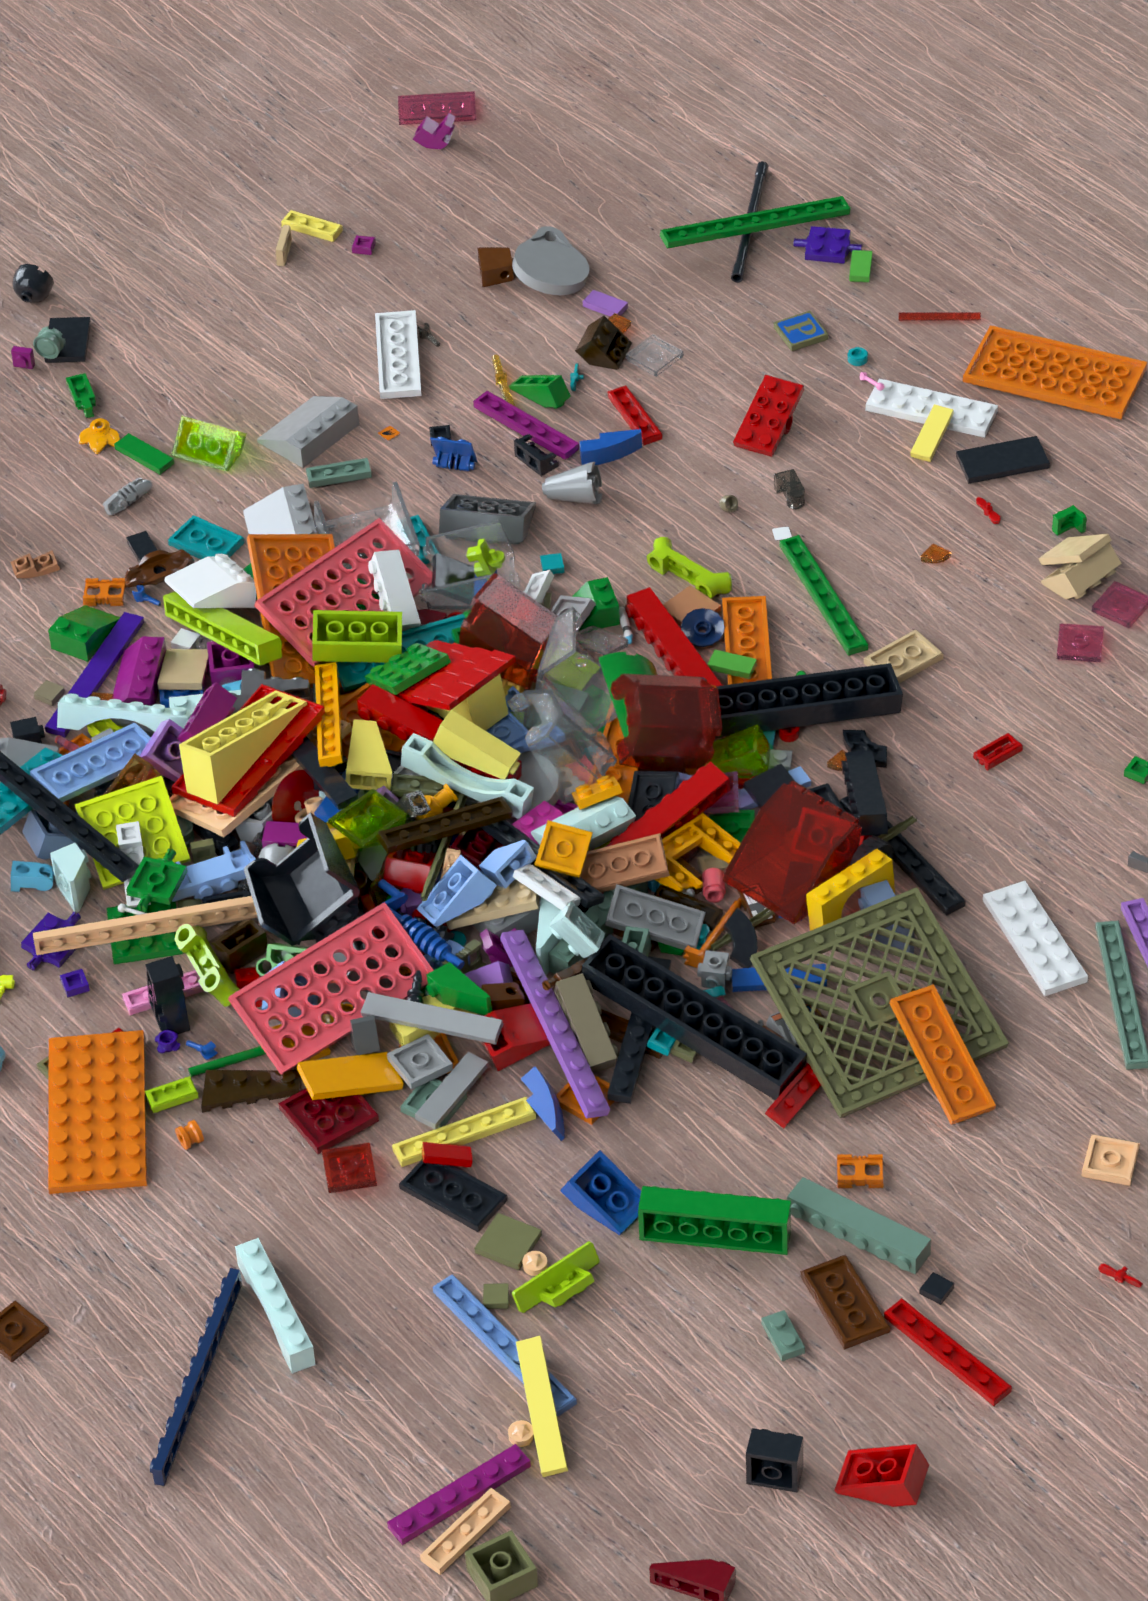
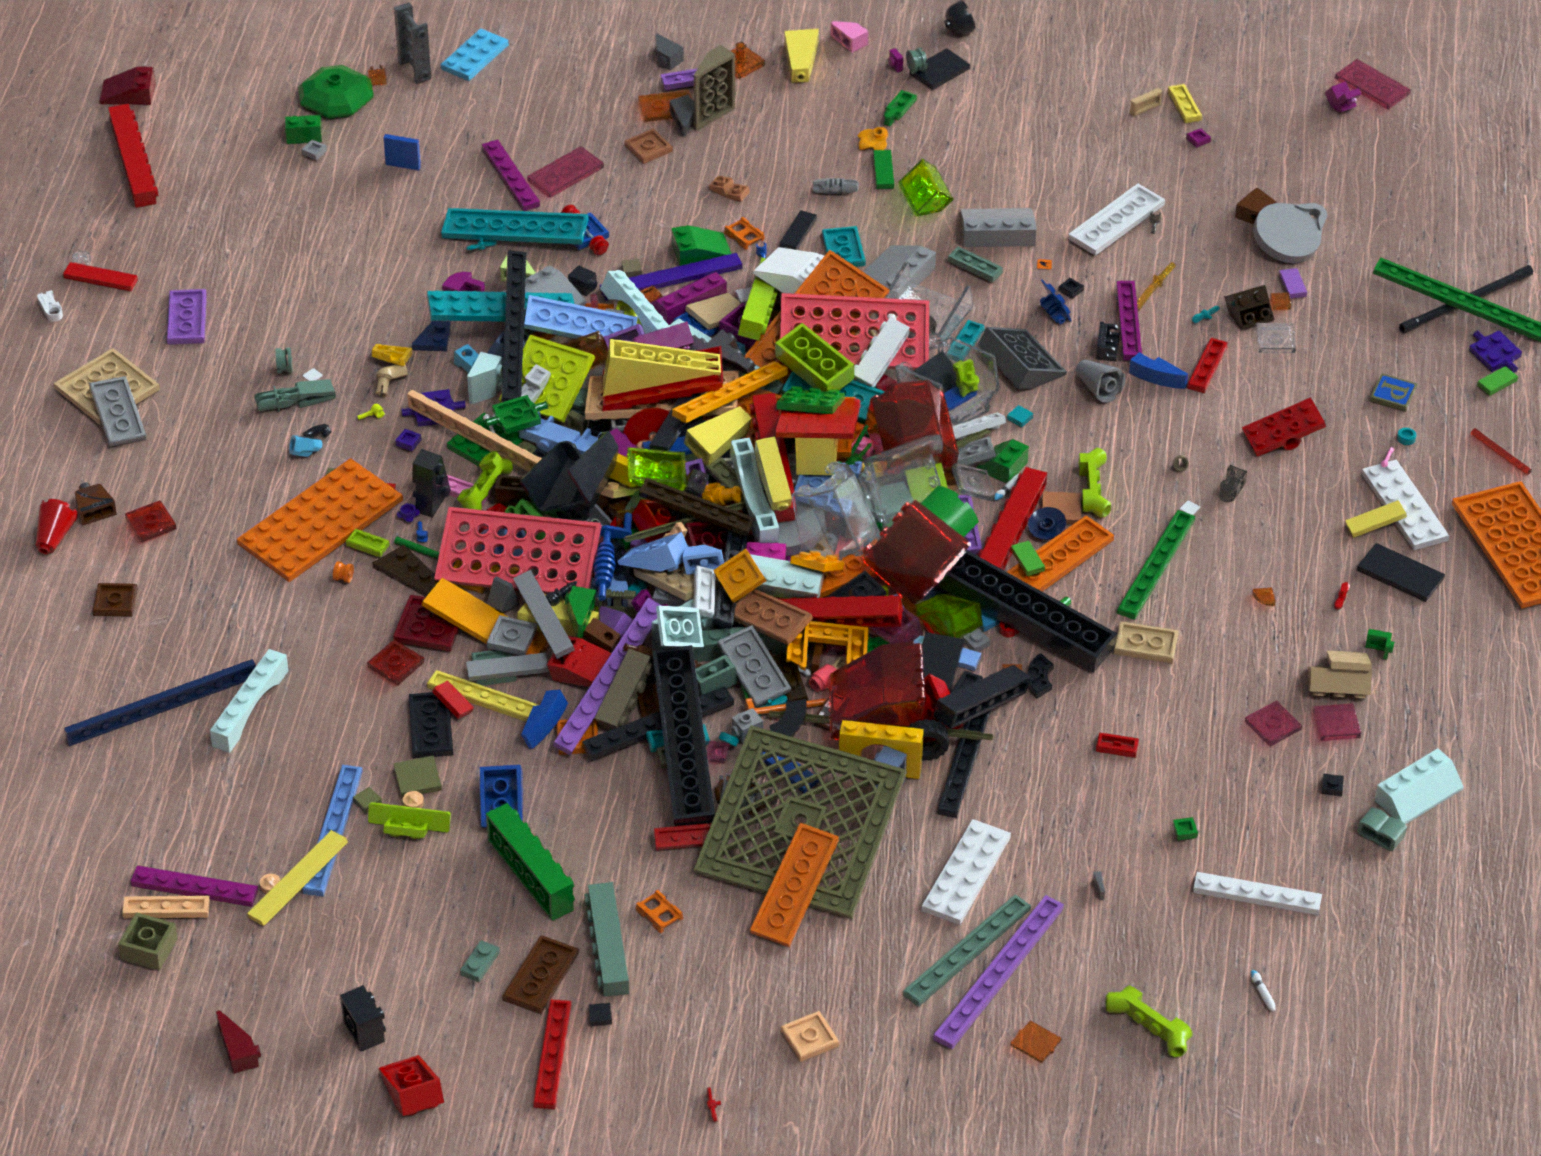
camera: 45 degrees right, 0 degrees up
(144, 574) = (777, 238): reddish brown piece -> none
(542, 389) = (1169, 306): green slope -> none

